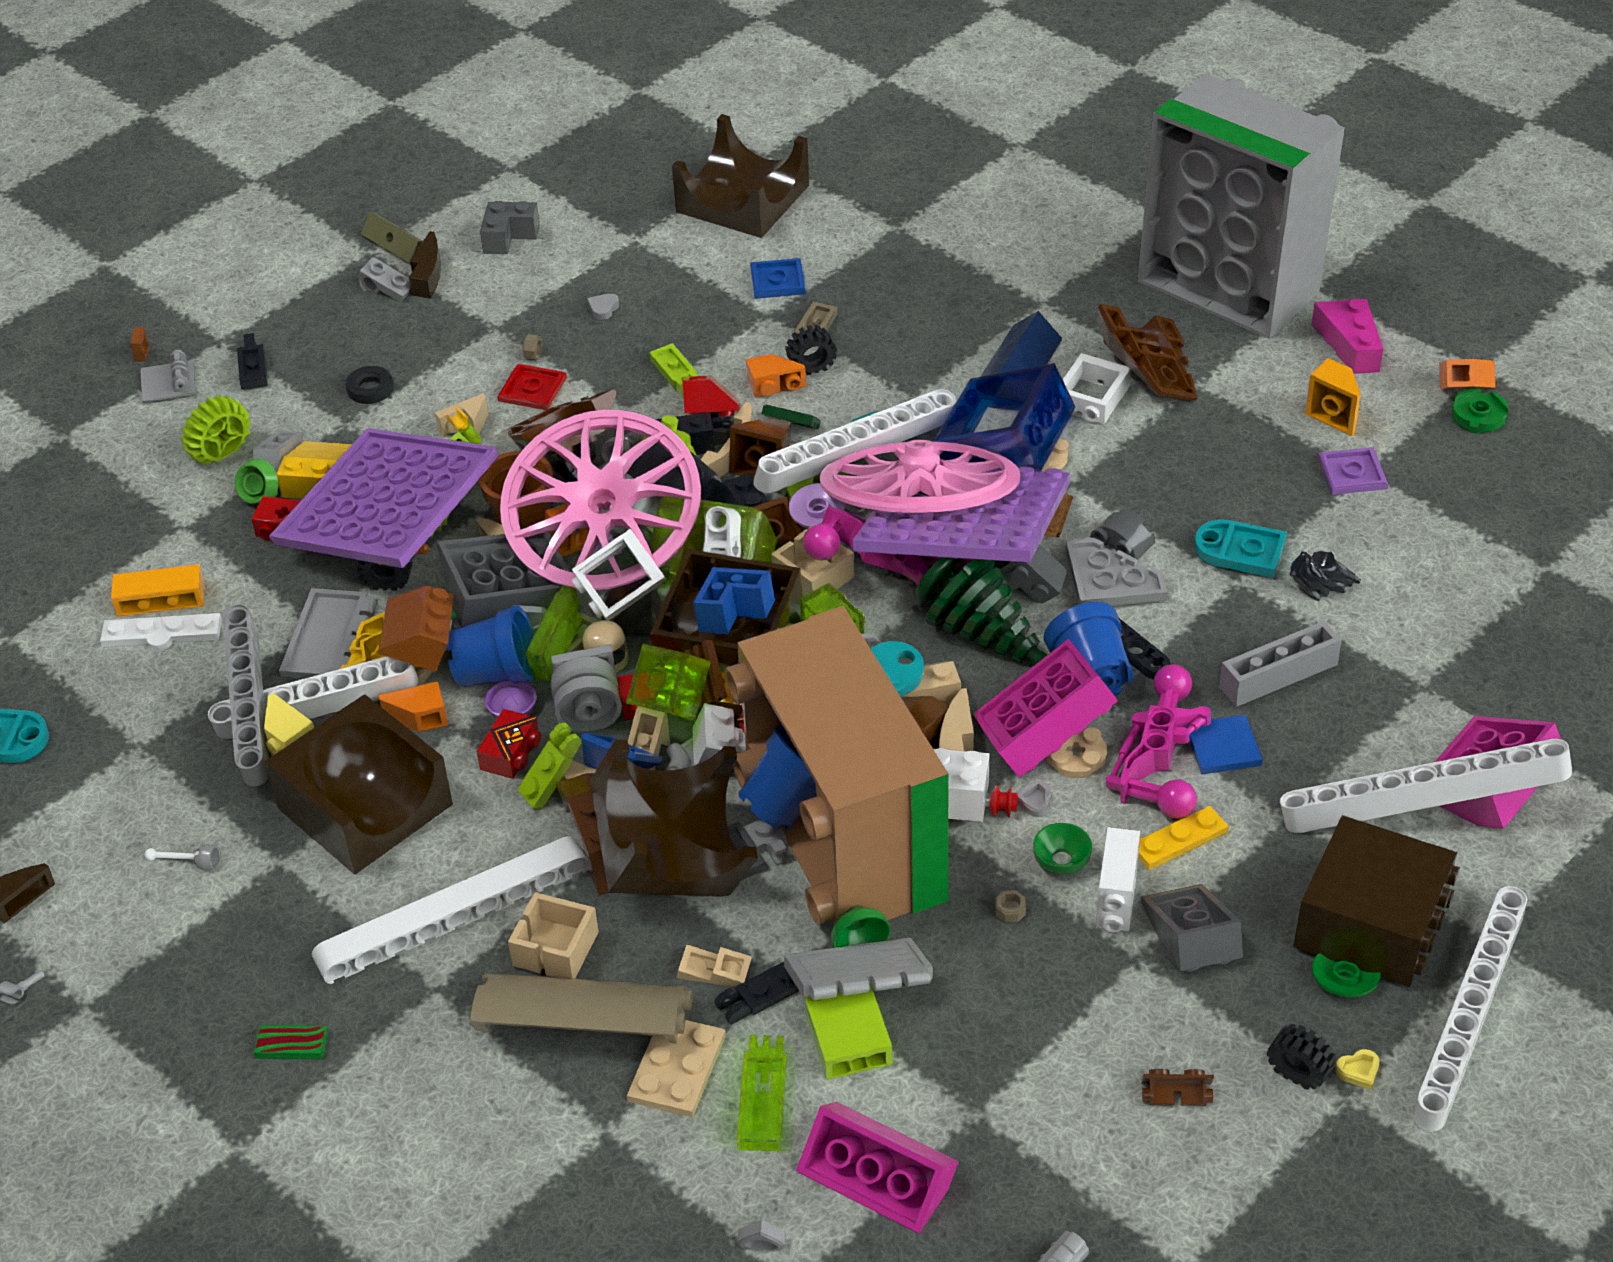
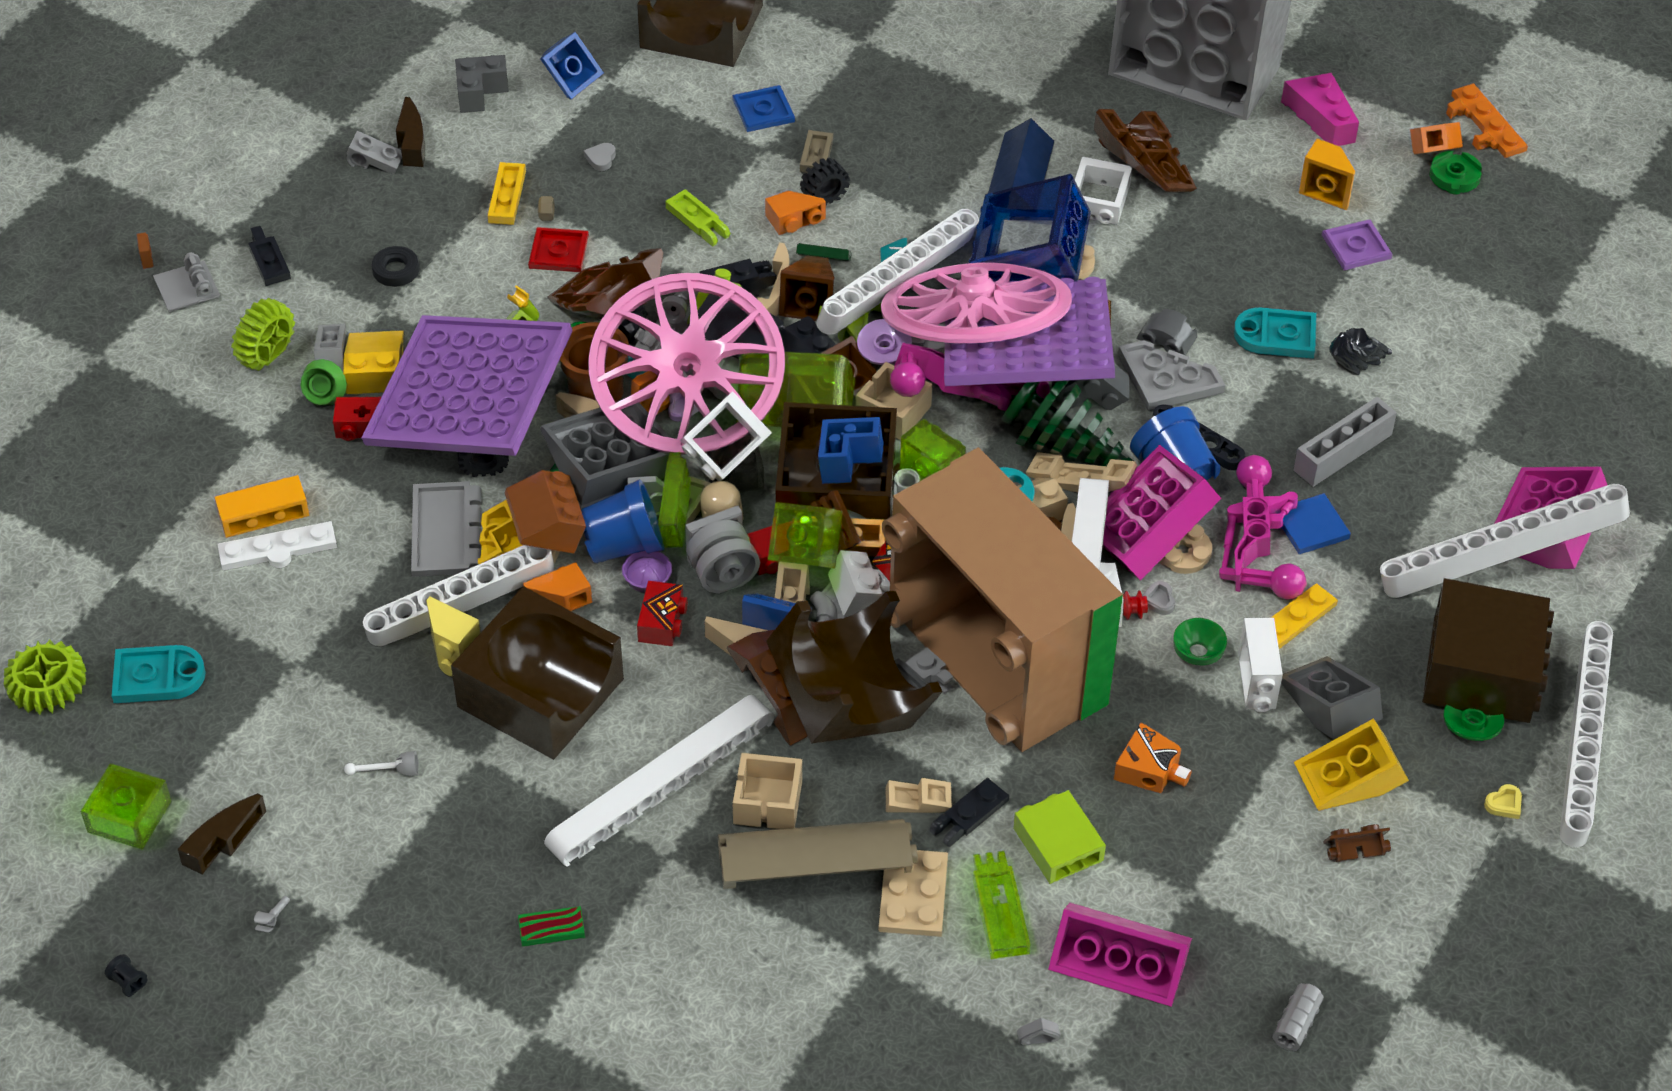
camera: 15 degrees left, 5 degrees up
(246, 694) = (401, 611): light grey beam -> none
(390, 236) = (355, 101): olive tile -> none
(474, 408) = (496, 291): tan slope -> none
(499, 329) = (506, 193): none -> yellow plate
(550, 766) = (712, 631): lime hinge -> none
(600, 219) = (571, 65): none -> blue slope
(707, 395) = (738, 242): red slope -> none
(722, 537) = (814, 387): white piece -> none
(779, 782) = (943, 612): blue piece -> none
(858, 968) = (1054, 779): light grey hinge -> none
(871, 927) = (1044, 743): green piece -> none
(968, 717) = (1091, 518): none -> white beam
(972, 966) = (1150, 761): none -> orange torso
(984, 664) = (1069, 474): none -> tan slope
(1010, 906) = (1167, 701): dark tan tile -> none
(1193, 1005) = (1351, 768): none -> yellow slope
(1301, 1056) = (1458, 799): black tyre -> none
(1534, 371) = (1496, 130): none -> orange hinge

